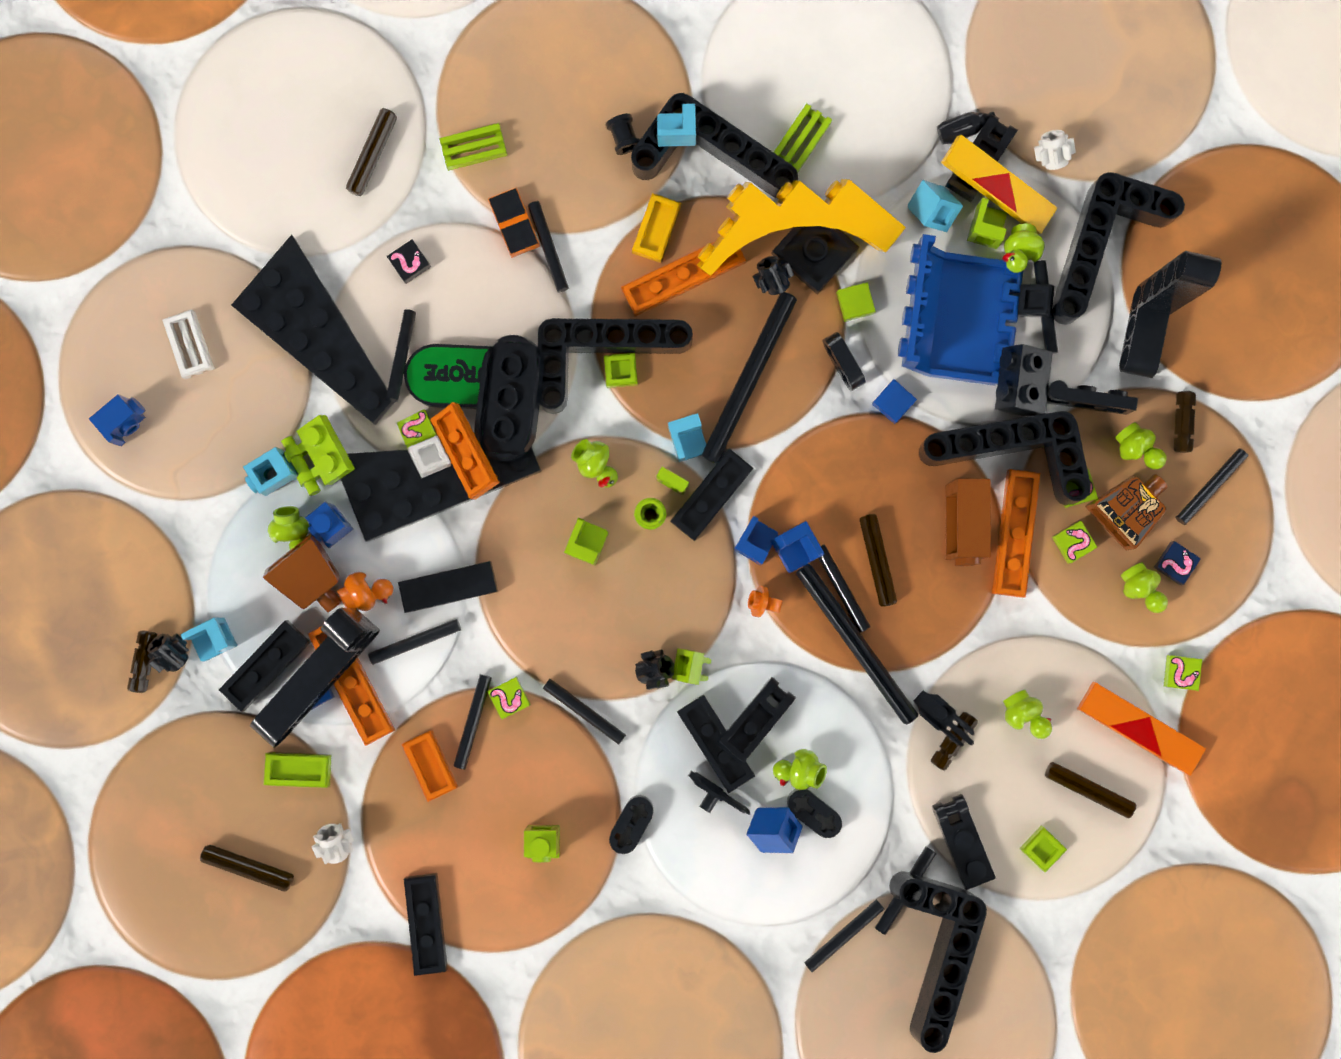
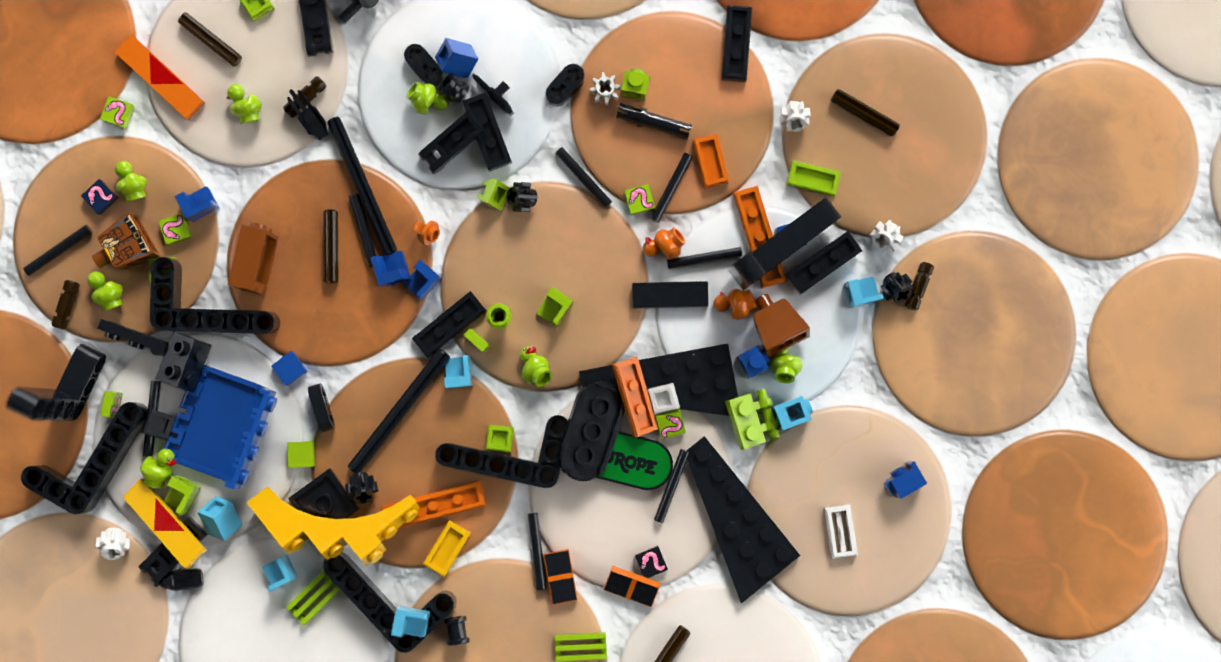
camera: 175 degrees left, 0 degrees up
(191, 714) = (886, 236): none -> white gear
(425, 227) = (632, 586): none -> black tile
(462, 651) = (667, 241): none -> orange animal
(510, 801) = (653, 120): none -> black pin
(582, 839) = (604, 81): none -> white gear
(768, 789) = (453, 88): none -> black wheel
(848, 157) = (279, 572): none -> medium azure panel
(1016, 533) = (218, 245): orange tile -> none
(1055, 578) = (197, 204): none -> blue panel
(1098, 313) = (110, 403): none -> lime tile

